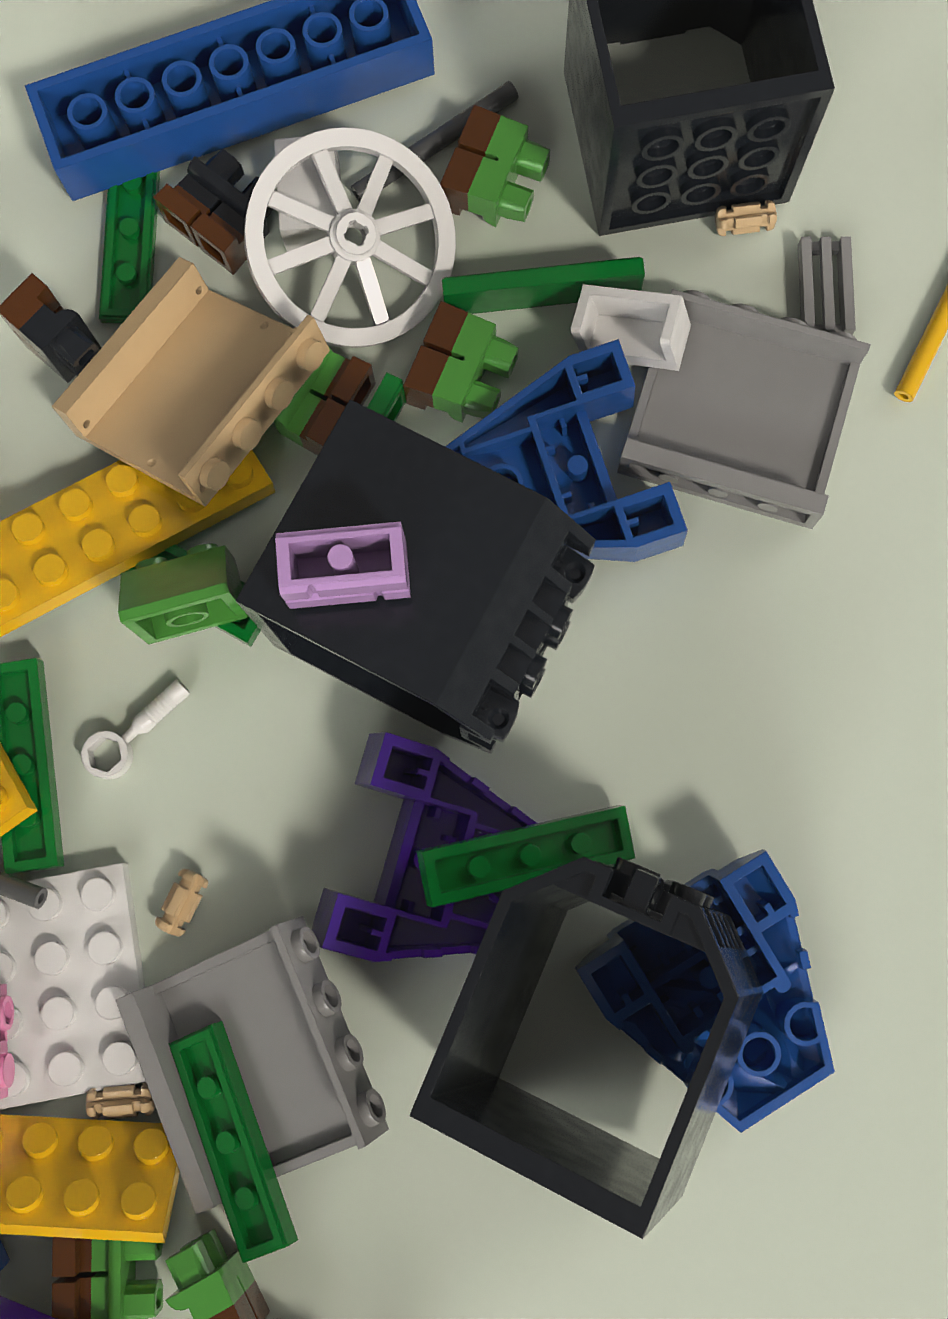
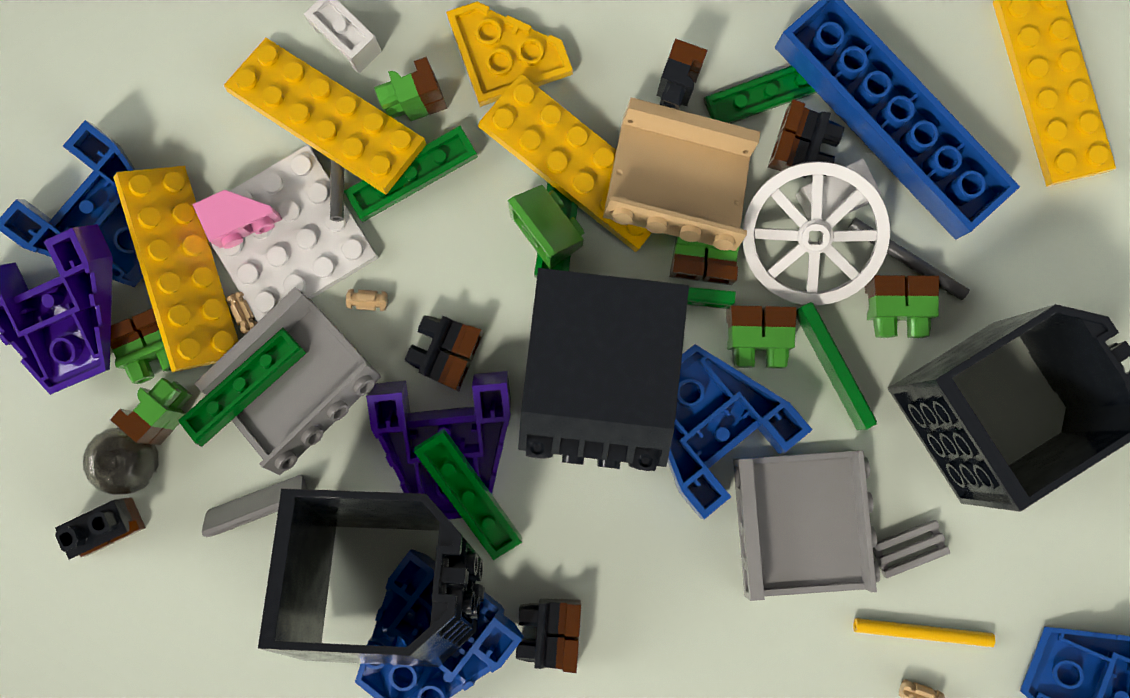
camera: 60 degrees right, 5 degrees up
(141, 723) = (462, 231): white piece -> none
(308, 807) = (448, 336): none -> hips
(342, 565) = (578, 325): lavender brick -> none
(420, 1200) = (247, 507): none -> light grey slope
(648, 324) = (830, 440): white panel -> none
(745, 218) = (936, 479): tan piece -> none
(775, 807) = (556, 634): none -> black hips

